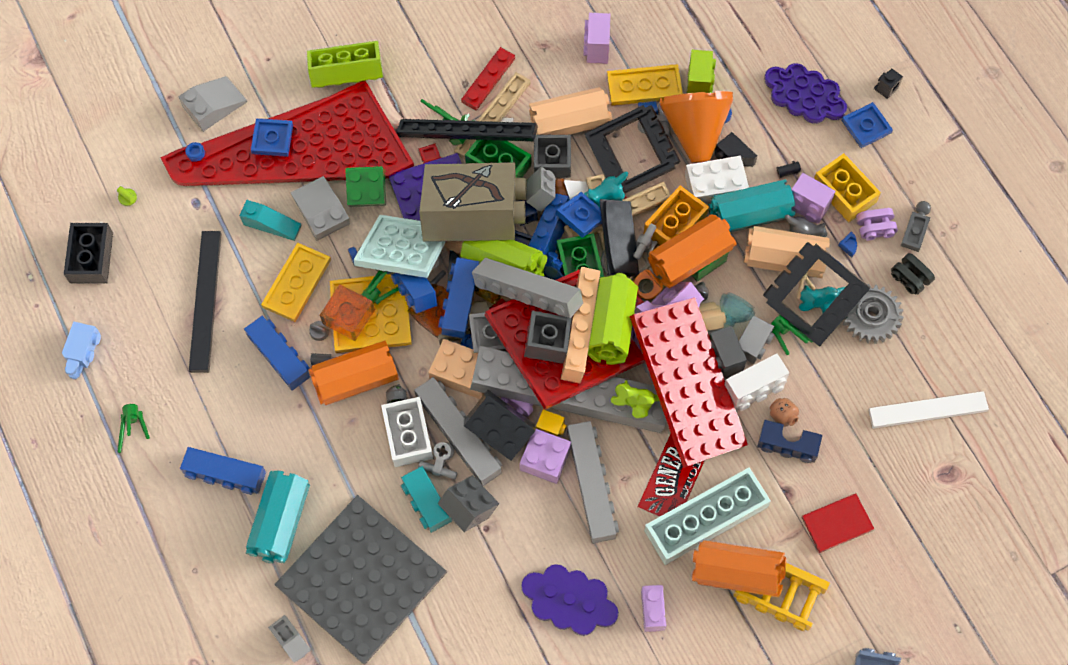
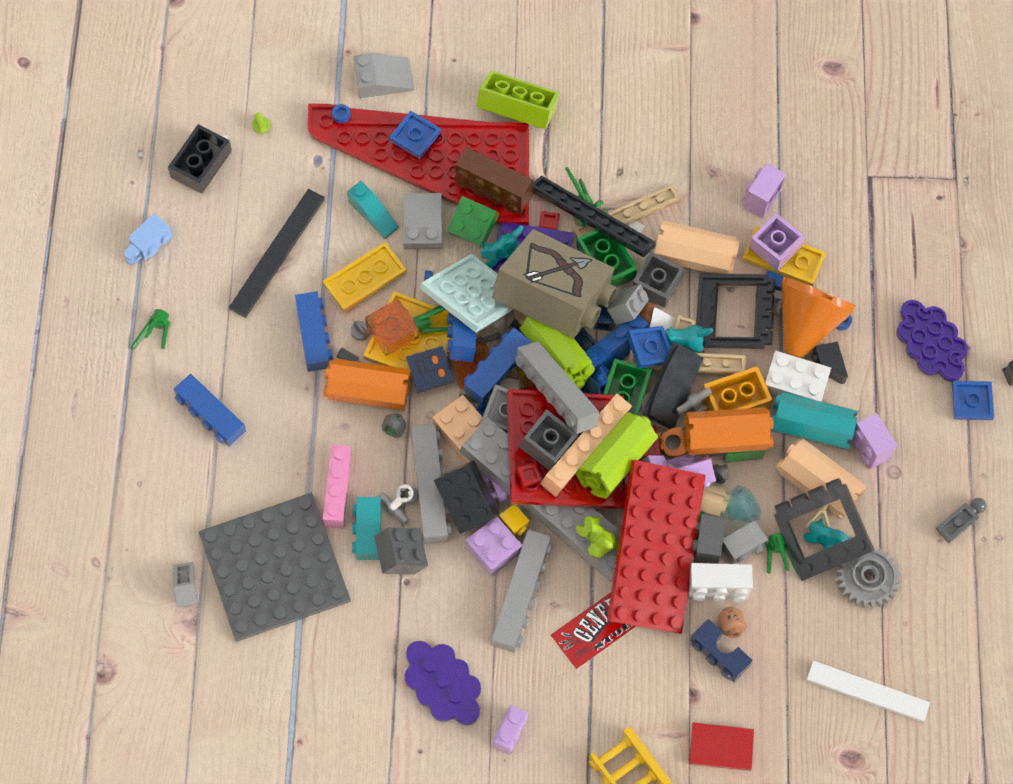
camera: 25 degrees right, 0 degrees up
(277, 517) = (232, 474): teal brick -> none
(364, 142) = (493, 181): none -> reddish brown brick
(378, 477) = (337, 486): none -> bright pink brick
(401, 332) = (430, 369): none -> dark blue tile
(405, 195) = (501, 248): none -> teal animal
(407, 432) = (384, 460): white brick -> none
(488, 78) = (642, 177): red plate -> none
(547, 376) = (528, 475): none -> red tile
(634, 74) = (776, 241): none -> lavender brick
(701, 71) = (840, 272): lime brick -> none
(707, 516) = (605, 676): light aqua brick -> none
(739, 568) = (604, 735): orange brick -> none
(785, 170) = (872, 404): black pin -> none
(801, 225) = (850, 462): dark grey animal -> none
(849, 244) = (887, 502): blue tile -> none
(852, 188) = (916, 450): yellow brick -> none
(876, 223) = (927, 504): lavender brick -> none
(912, 274) = (923, 569): pearl dark grey brick -> none

